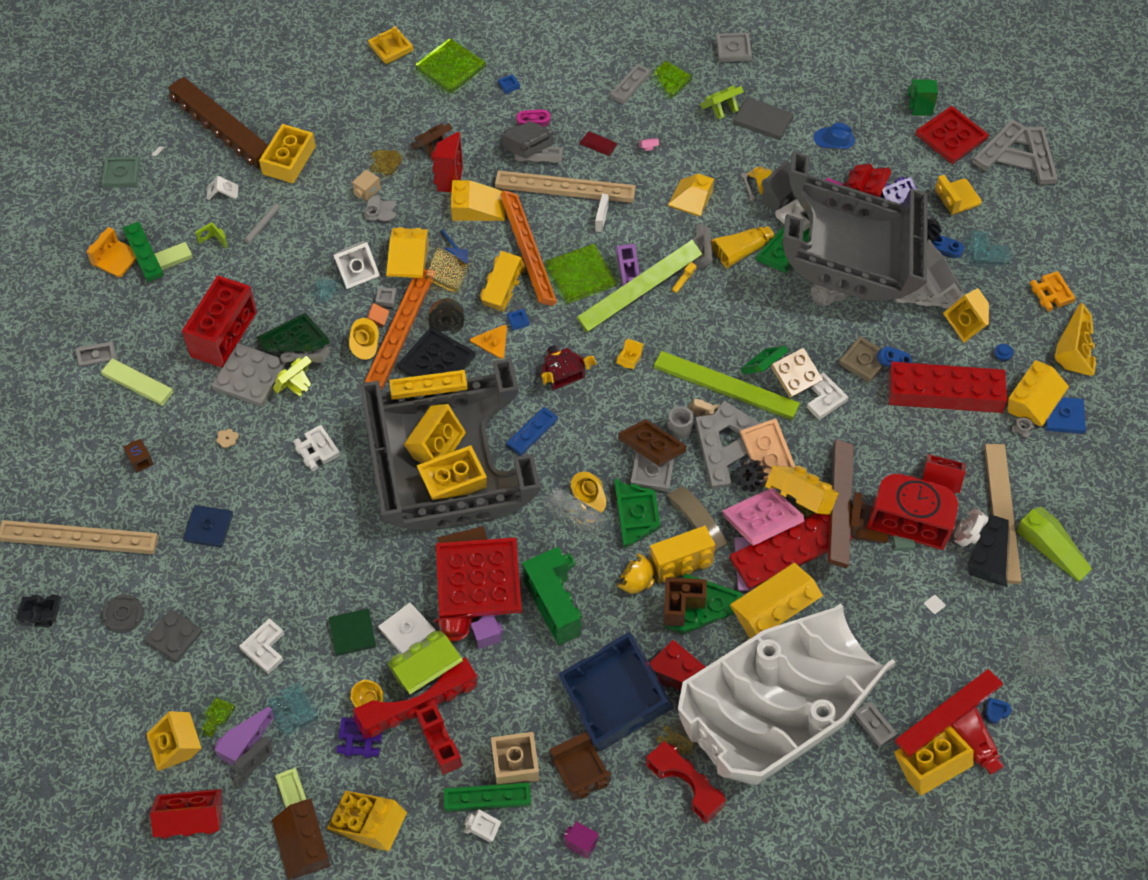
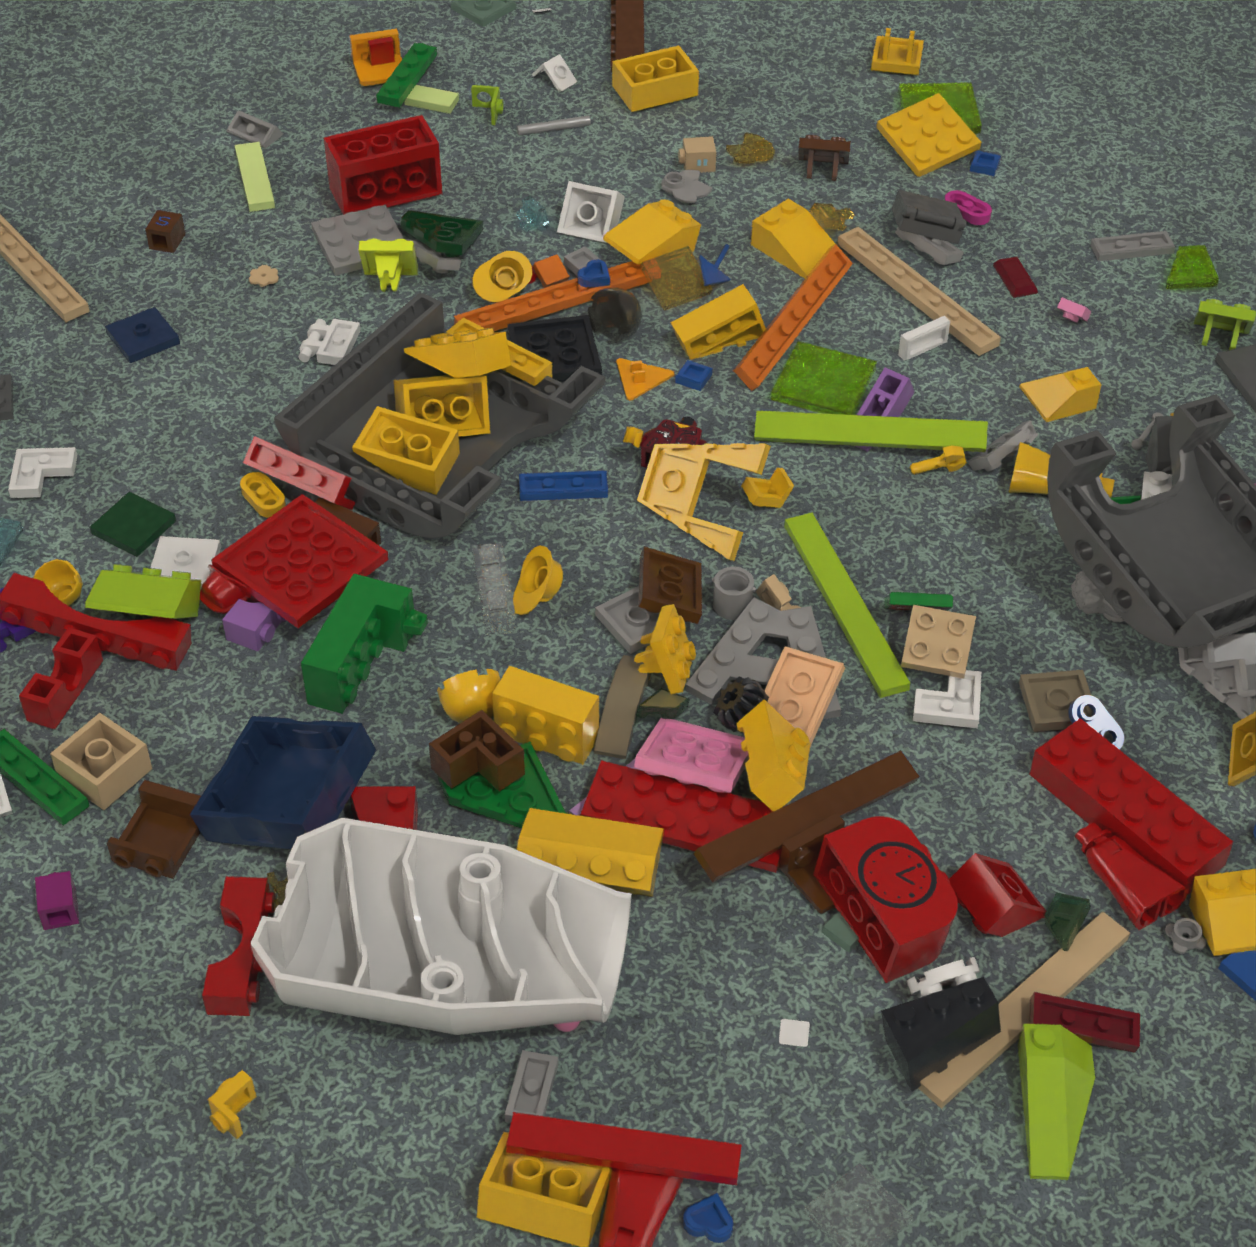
camera: 45 degrees right, 10 degrees down
(111, 247) = (381, 51): none -> red tile
(399, 558) = (262, 494): none -> yellow plate
(407, 300) = (594, 274): none -> blue tile
(410, 533) = (299, 471): none -> fence
(420, 401) = (463, 352): none -> yellow slope
(447, 162) = (804, 172): red slope -> none
(467, 87) = (928, 135): none -> yellow plate
(481, 175) = (829, 217): none -> clear yellow plate
(590, 385) = (676, 479): none -> yellow wing
(636, 512) = (563, 643): green wing -> none
(689, 469) = (668, 650): none -> yellow plate
(717, 504) = (663, 703): none -> tile
(768, 845) = (229, 1100): none -> yellow bracket
(976, 459) = (1066, 917): none -> clear green tile
(983, 419) = (1133, 880): none -> red piece
(1033, 498) = (1088, 1021): none -> dark red plate

